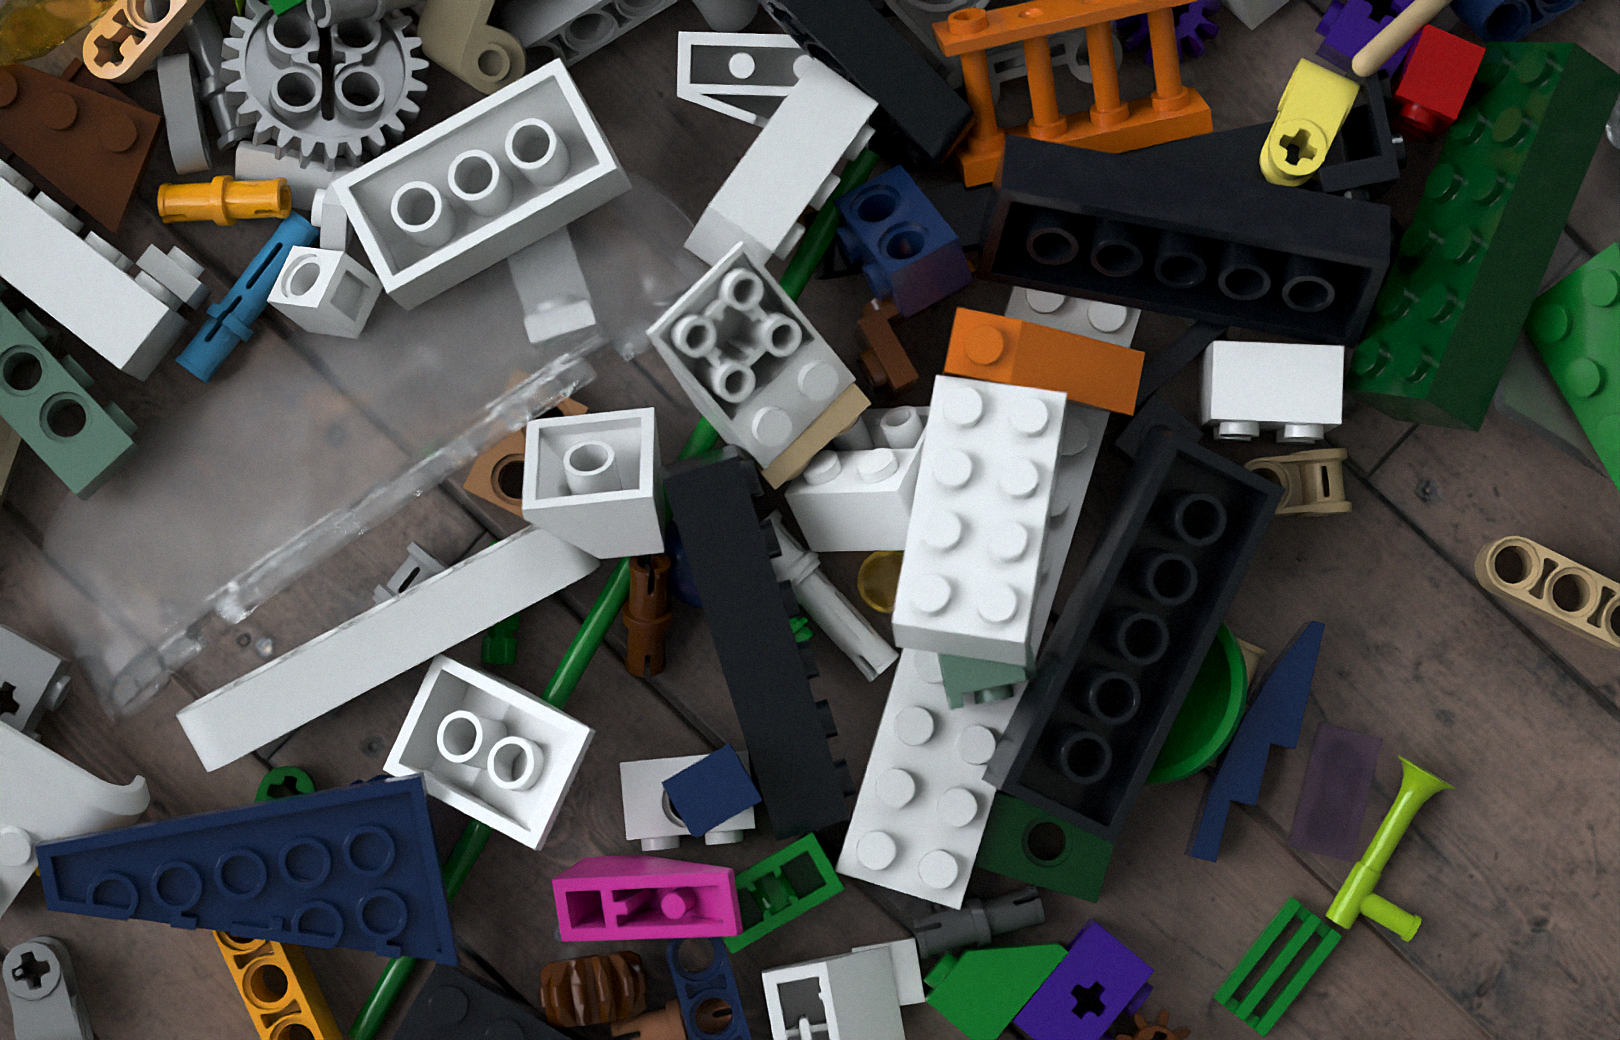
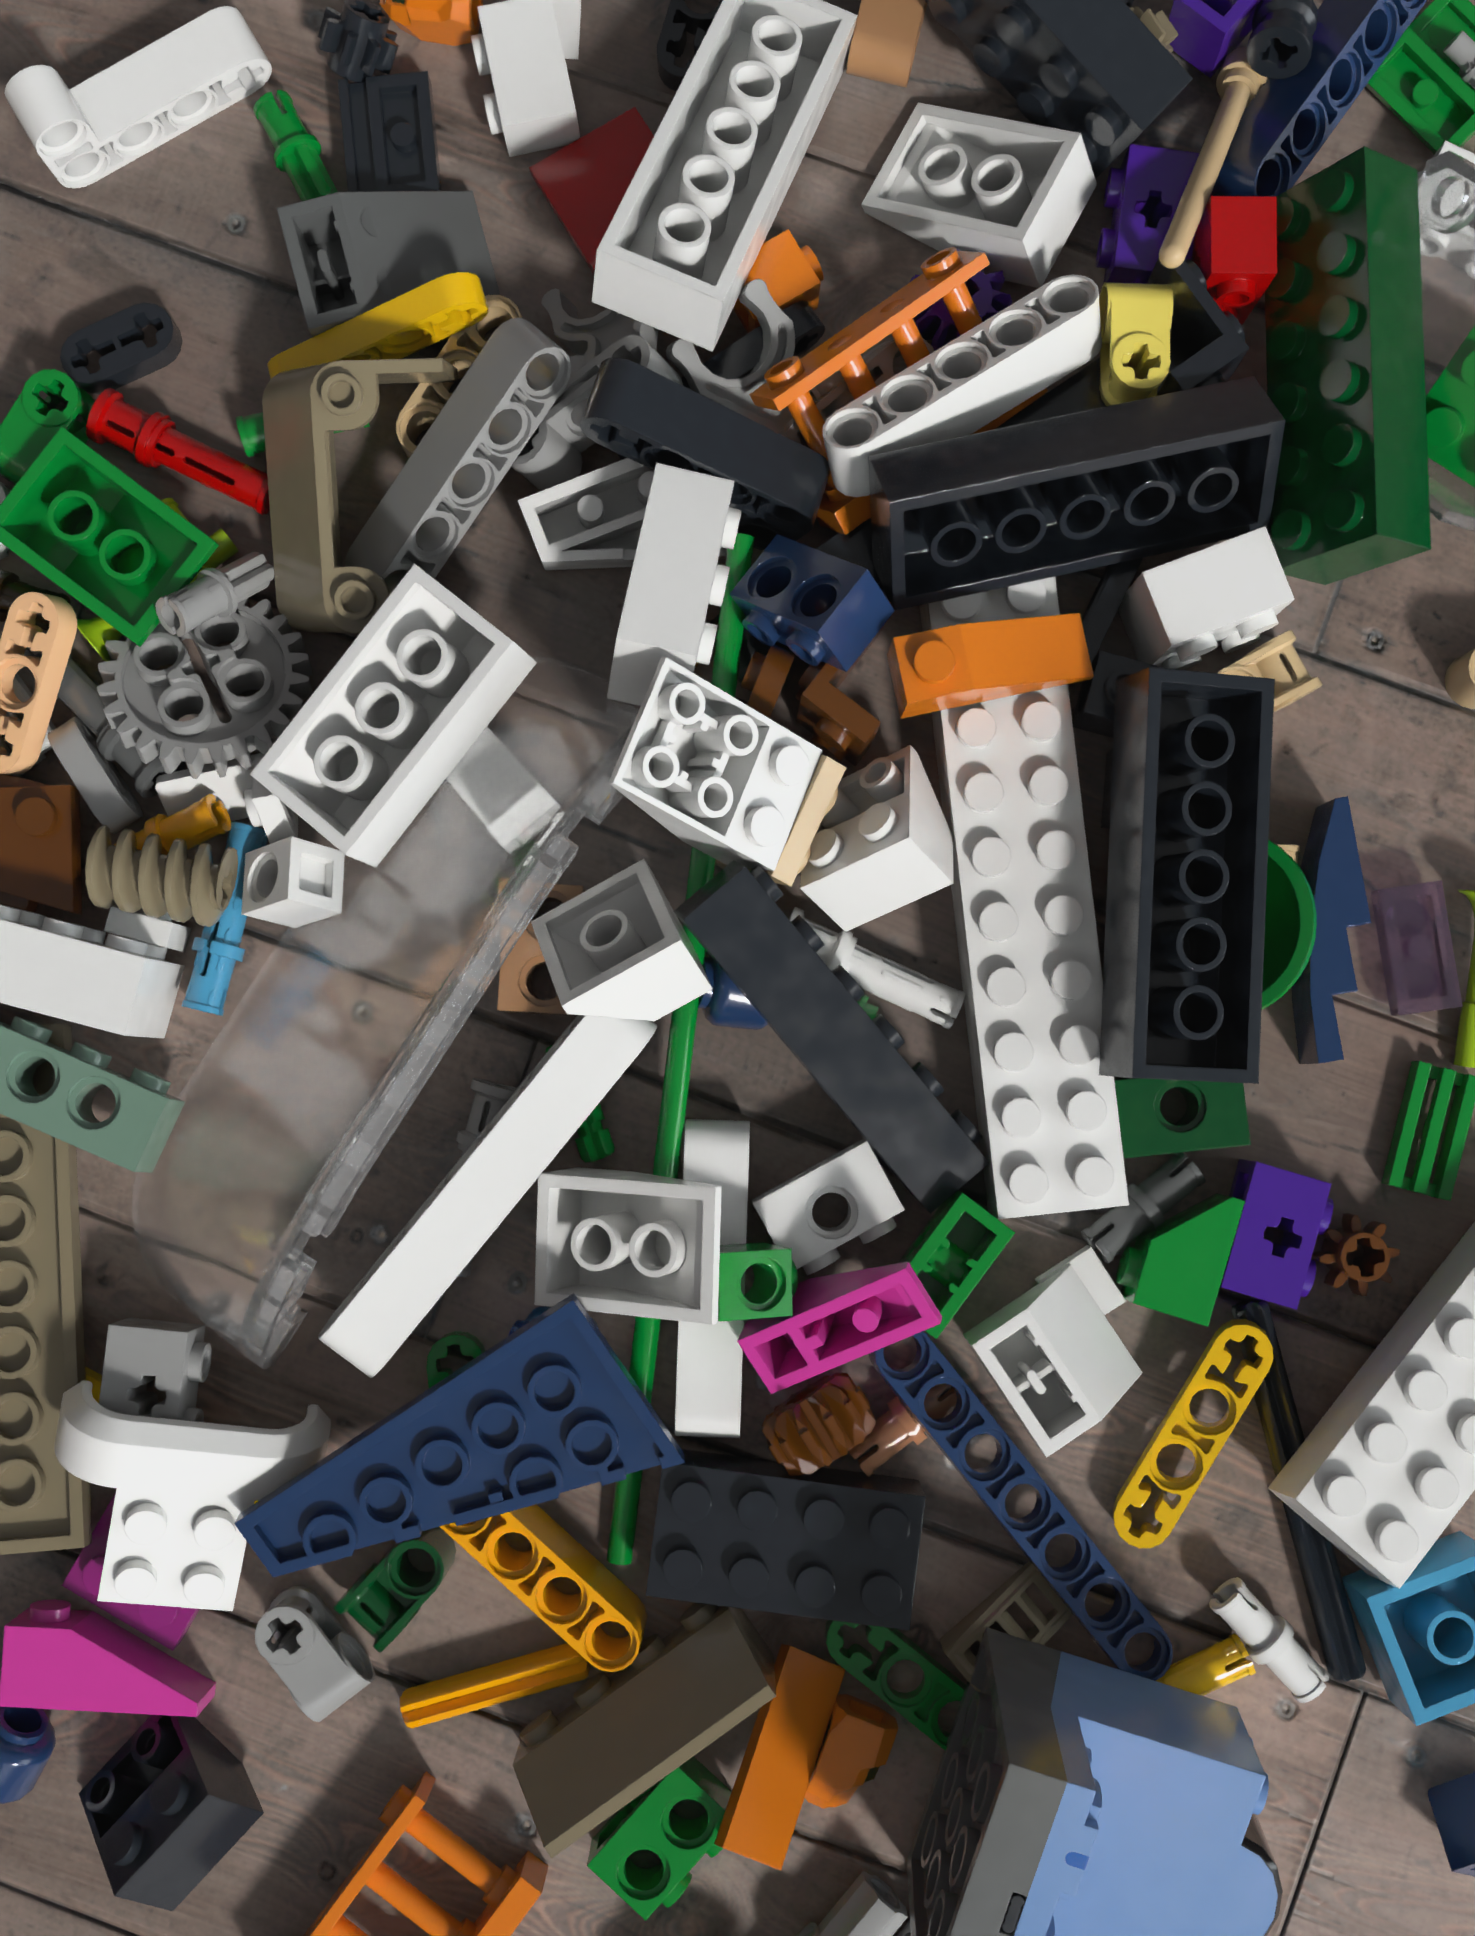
camera: 20 degrees left, 0 degrees up
(141, 974) = (394, 1590): none -> dark green piece
(208, 239) = (158, 880): none -> dark tan piece
(522, 877) = (709, 1354): none -> white beam
(607, 841) = (772, 1286): none -> green brick
(647, 614) = (719, 1053): reddish brown pin -> none
(712, 791) = (853, 1194): dark blue panel -> none
(834, 291) = (766, 678): none -> reddish brown plate
(880, 571) = (935, 923): clear yellow wheel -> none
(980, 520) = (1003, 830): white brick -> none
(984, 678) = (1060, 968): sand green brick -> none
(1134, 97) = (968, 379): none -> white beam

